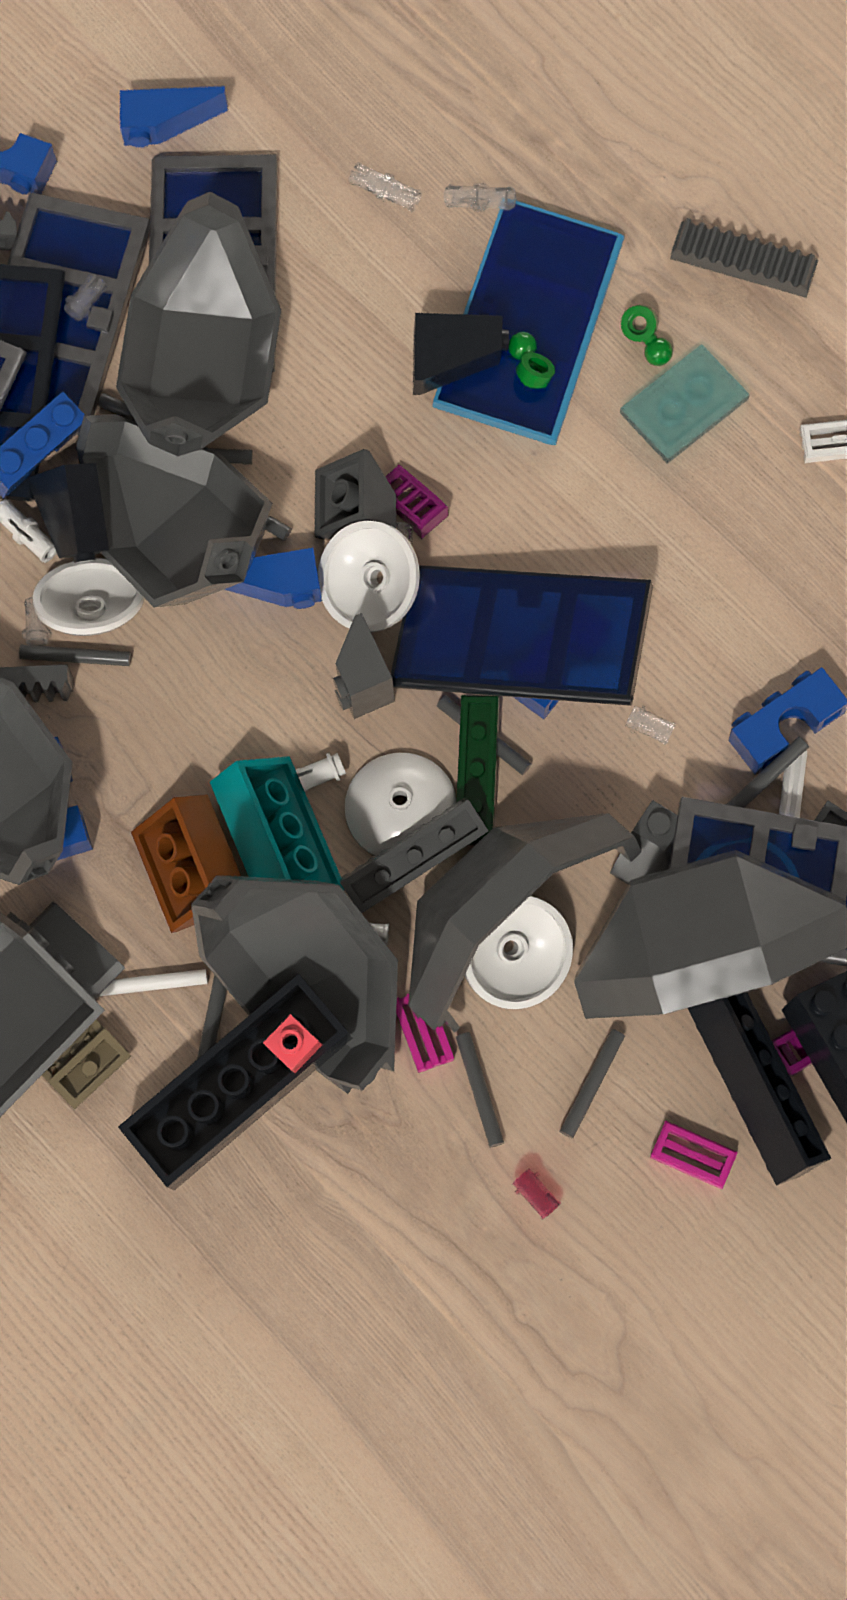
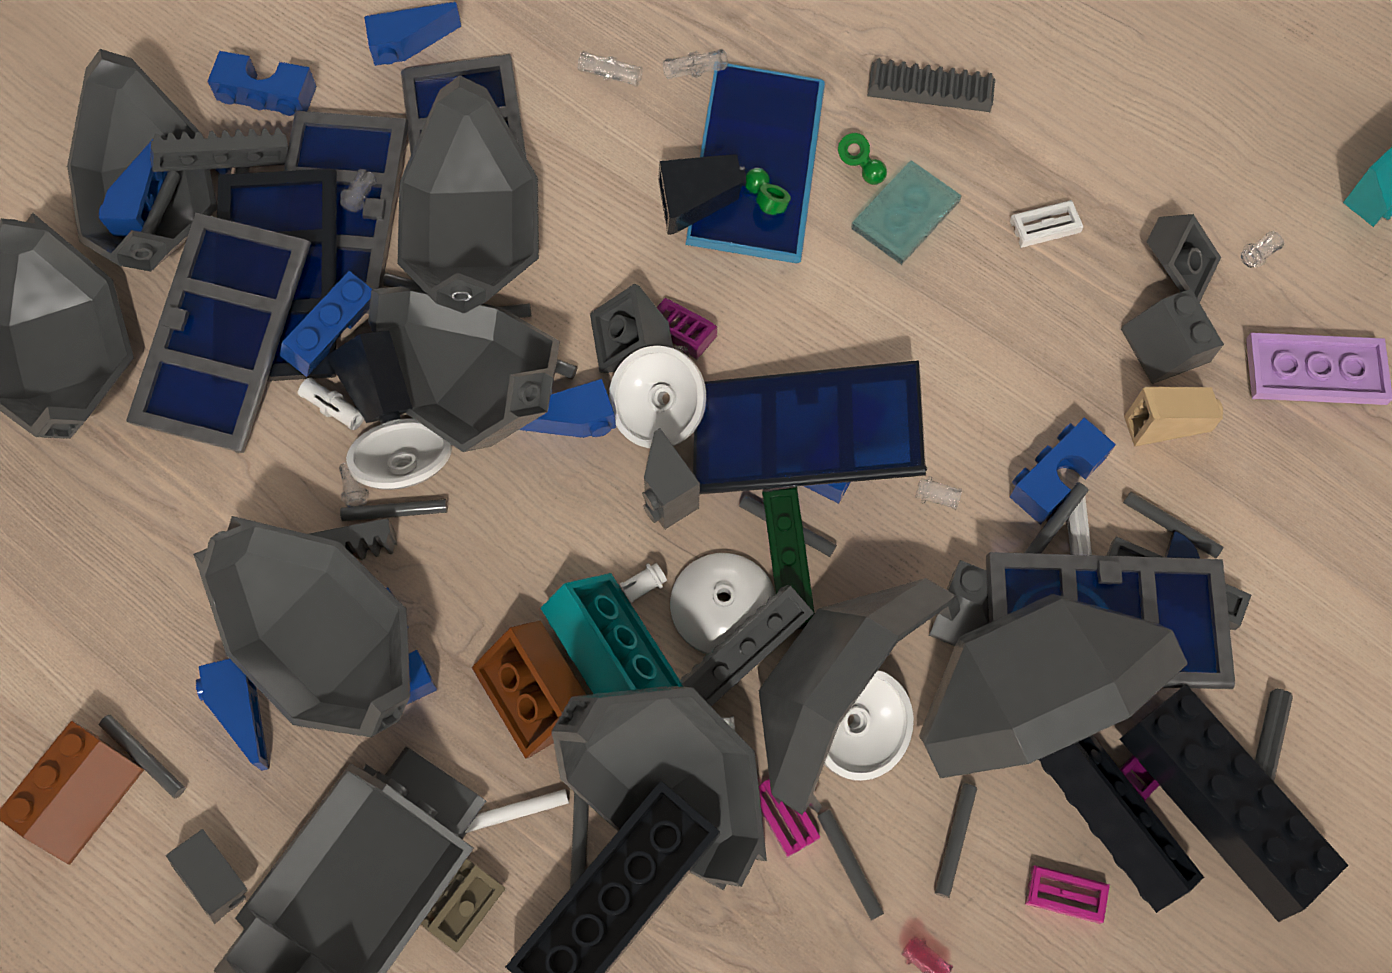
camera: 15 degrees left, 5 degrees down
(298, 1056) = (683, 852): coral plate -> none

